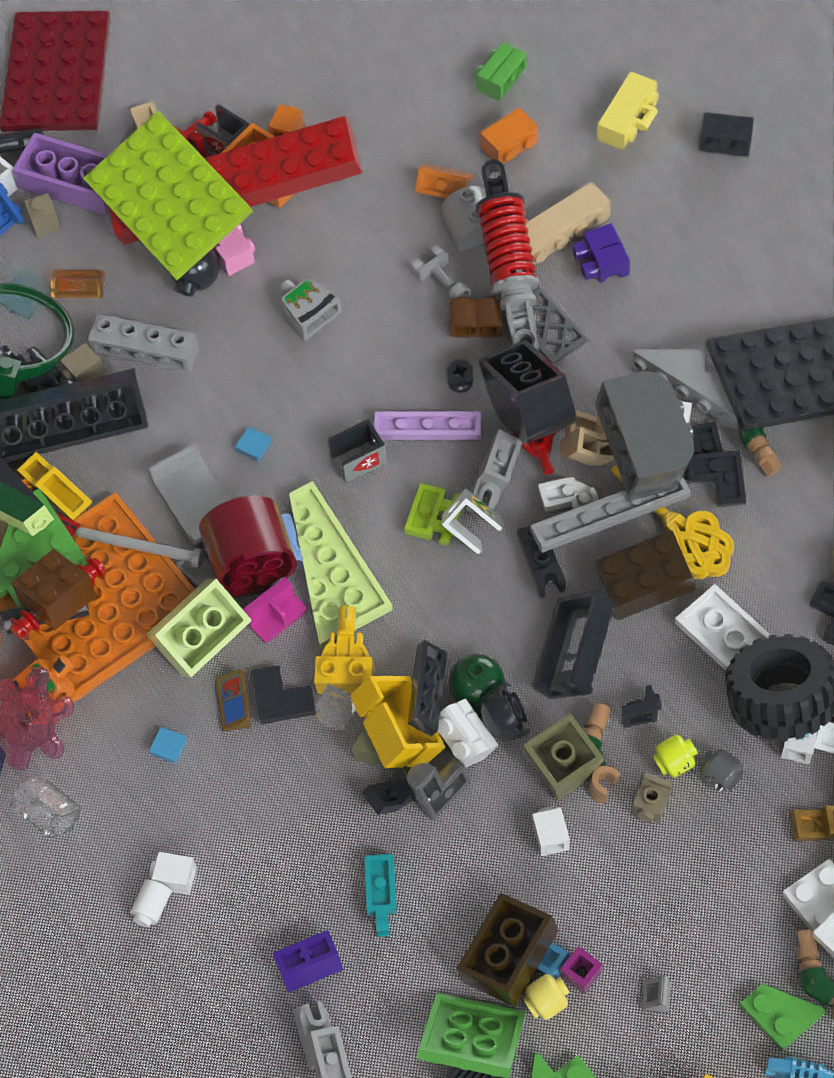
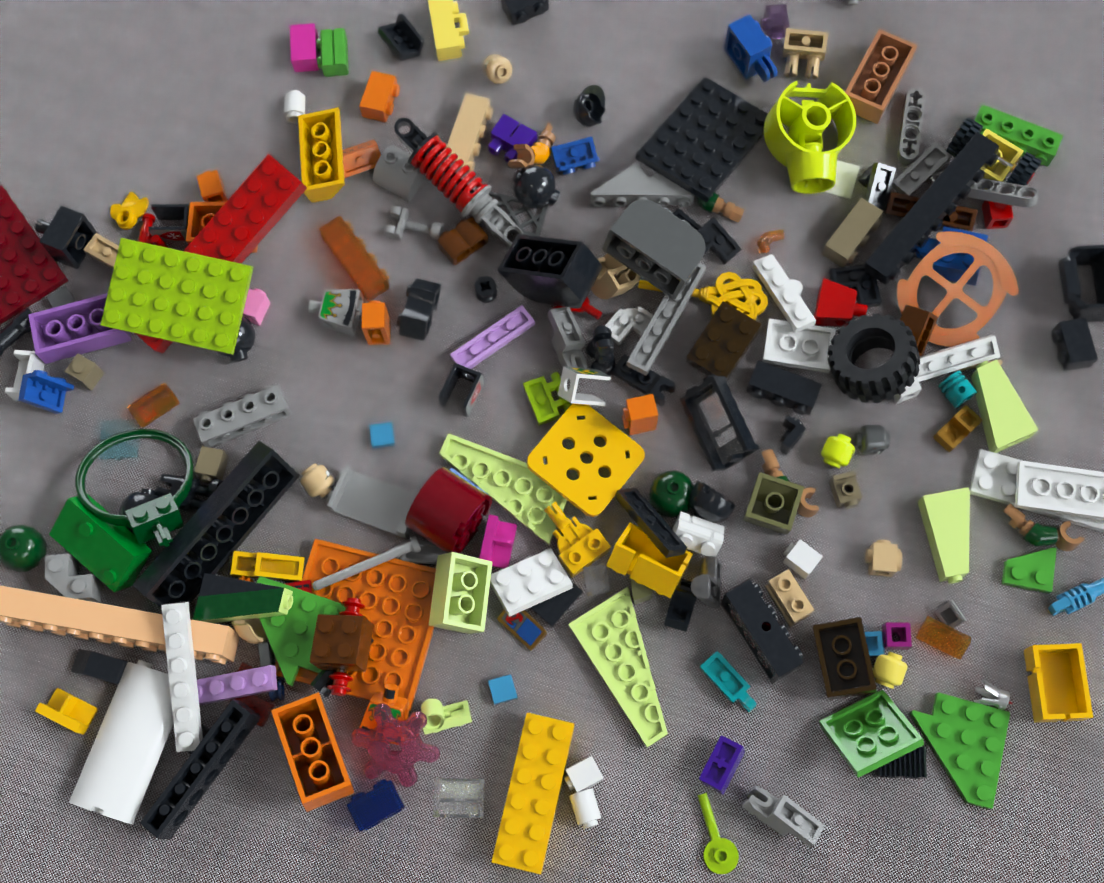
camera: 40 degrees left, 10 degrees up
(79, 138) = (61, 297): none -> dark grey tile
(95, 729) = (445, 717): none -> yellowish green plate
(114, 854) = (533, 793): none -> yellow brick
(123, 87) = (66, 236): none -> black brick
(160, 442) = (317, 480): none -> tan head
(194, 101) = (129, 211): none -> yellow plate
(238, 1041) = (720, 853): none -> lime piece
(271, 665) = (530, 582): none -> white plate
(299, 789) = (618, 653): none -> yellowish green wing
(328, 337) = (376, 323): none -> orange brick
(361, 269) = (354, 258): none -> clear orange brick
(374, 356) = (418, 311): none -> black brick
(405, 153) = (321, 154): none -> yellow slope
(405, 614) = (589, 481): none -> yellow piece
(422, 98) = (294, 106): none -> white brick
(449, 865) = (762, 631): none -> black brick
(474, 48) = (303, 47): none -> dark pink panel
(504, 584) = (640, 414): none -> orange brick
(505, 857) = (789, 598): none -> tan hinge
(519, 501) = (602, 349): none -> black piece
(575, 97) = (402, 38): none -> black bracket
(584, 309) = (535, 186): none -> black brick
(614, 281) = (537, 153): none -> medium nougat piece
(628, 1007) = (943, 637): none -> clear orange plate
(633, 889) = (883, 558): none -> tan brick
(643, 179) = (497, 69): none -> tan head
(652, 306) = (575, 154): none -> blue bracket
(672, 660) = (783, 388): none -> black brick
(706, 269) = (590, 106): none -> black piece
(725, 908) = (947, 529): none -> yellowish green slope
(752, 571) = (784, 292): none -> white hinge
(783, 509) = (767, 238): none -> clear orange arm
(796, 614) = (837, 305): none -> red torso

